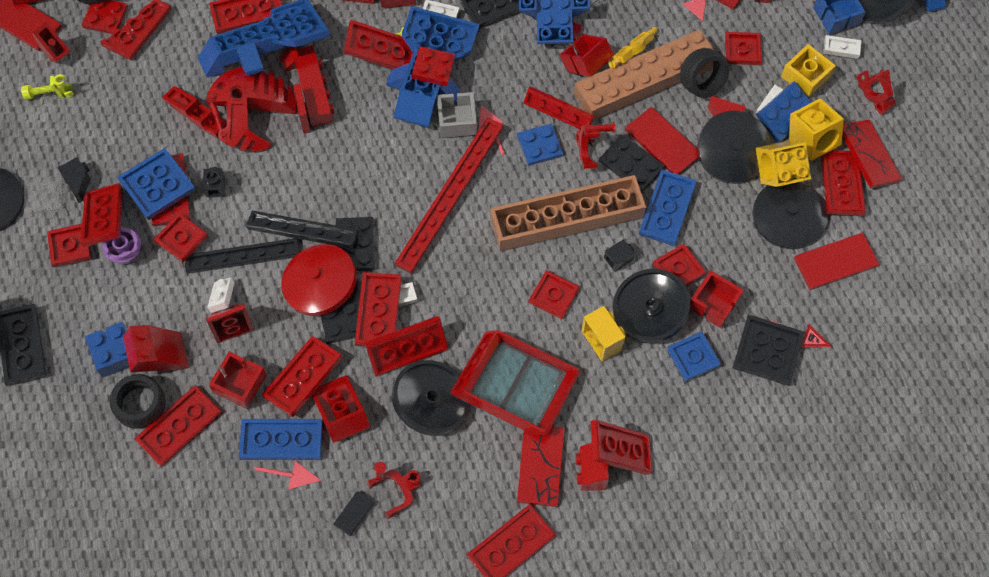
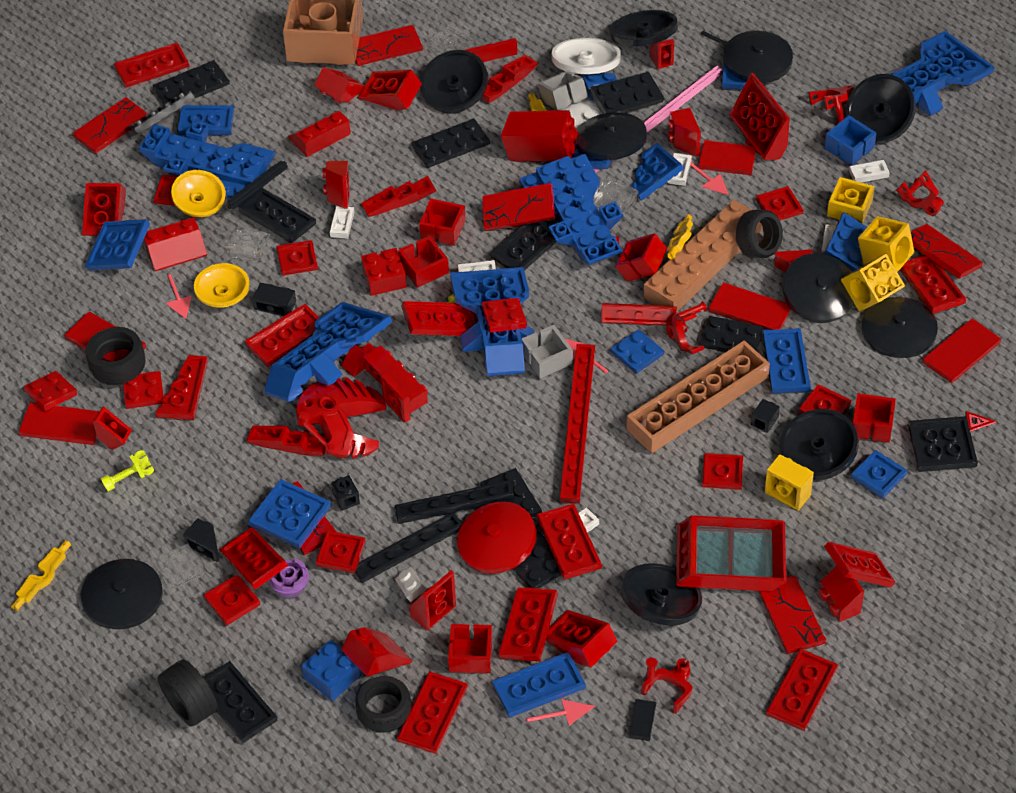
camera: 20 degrees left, 15 degrees down
(406, 345) = (613, 560): red tile -> none

